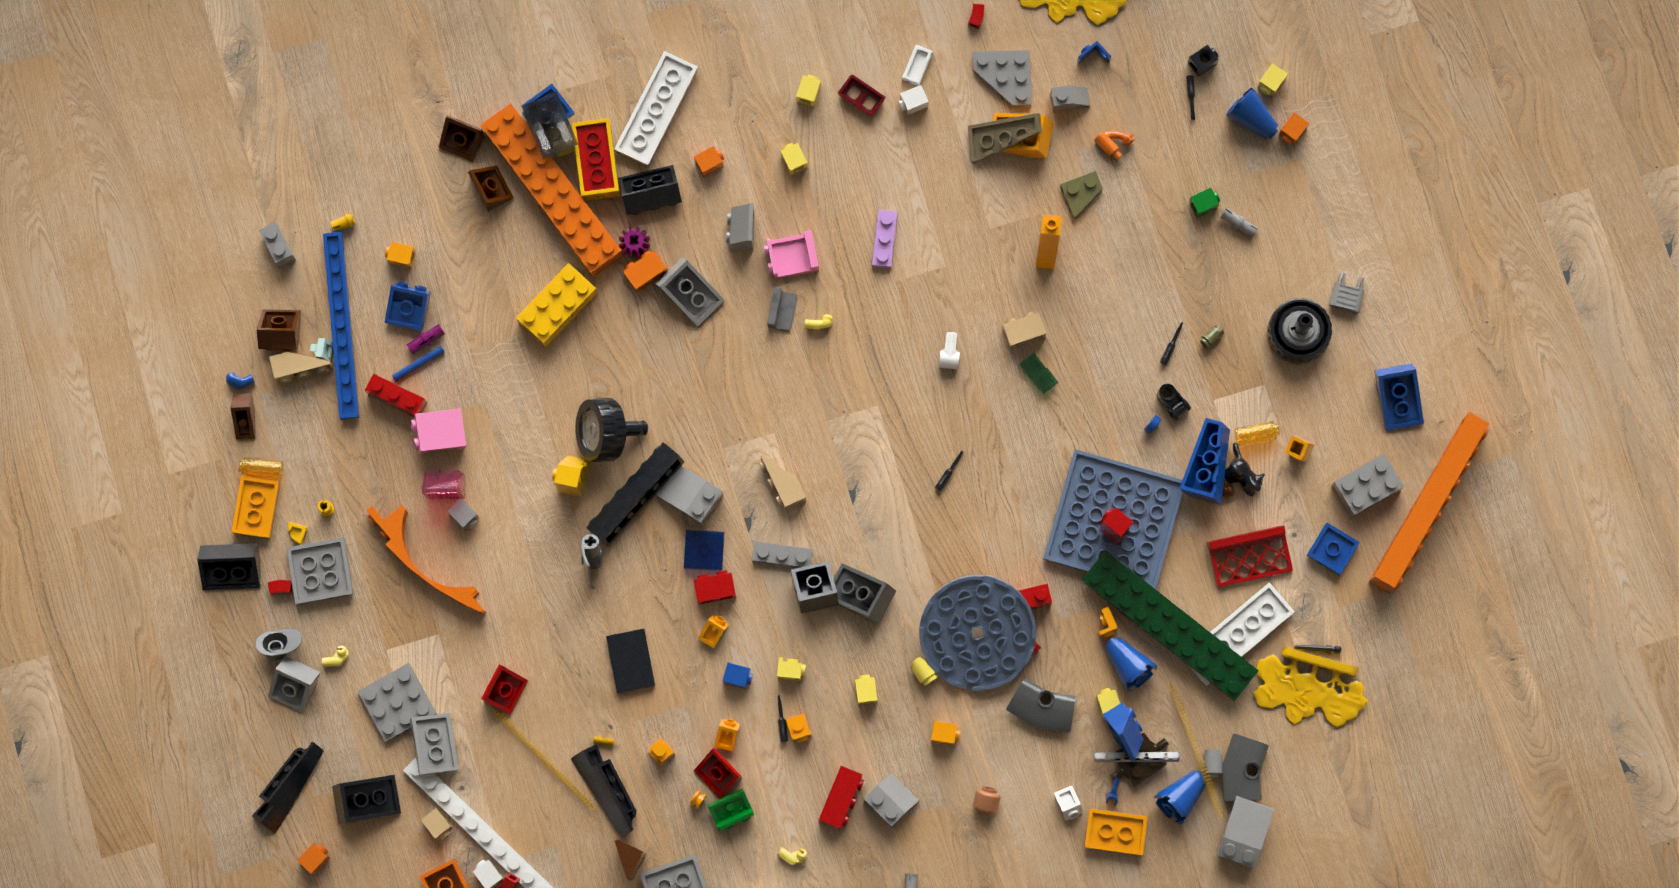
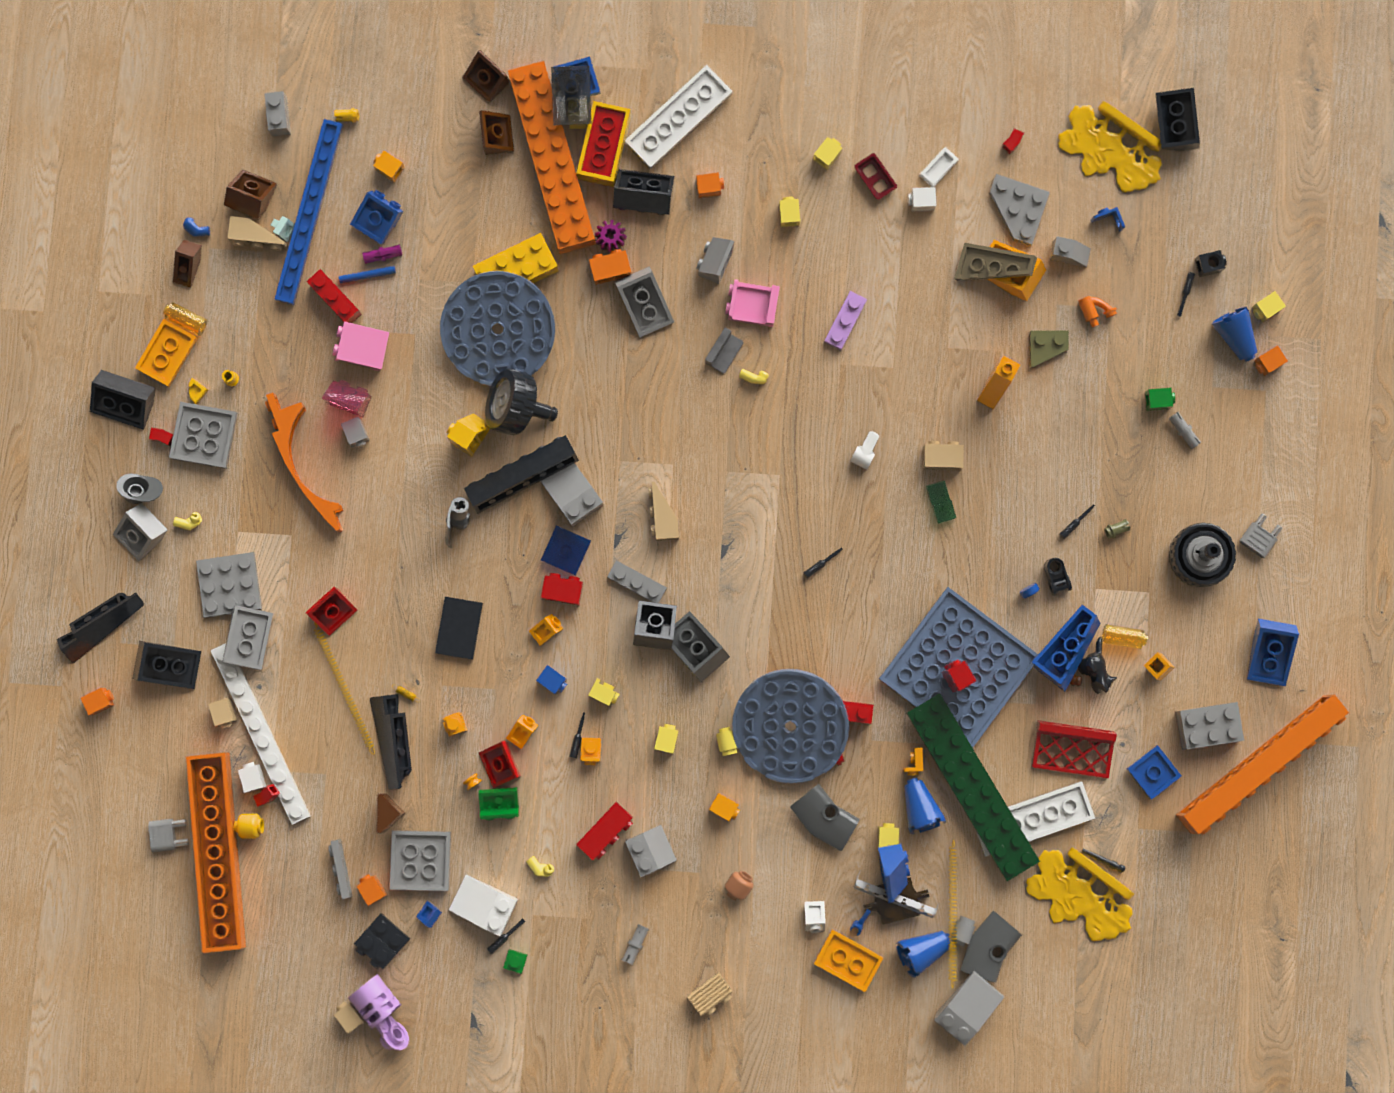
camera: 15 degrees right, 5 degrees up
(553, 339) = (503, 300): none -> sand blue plate

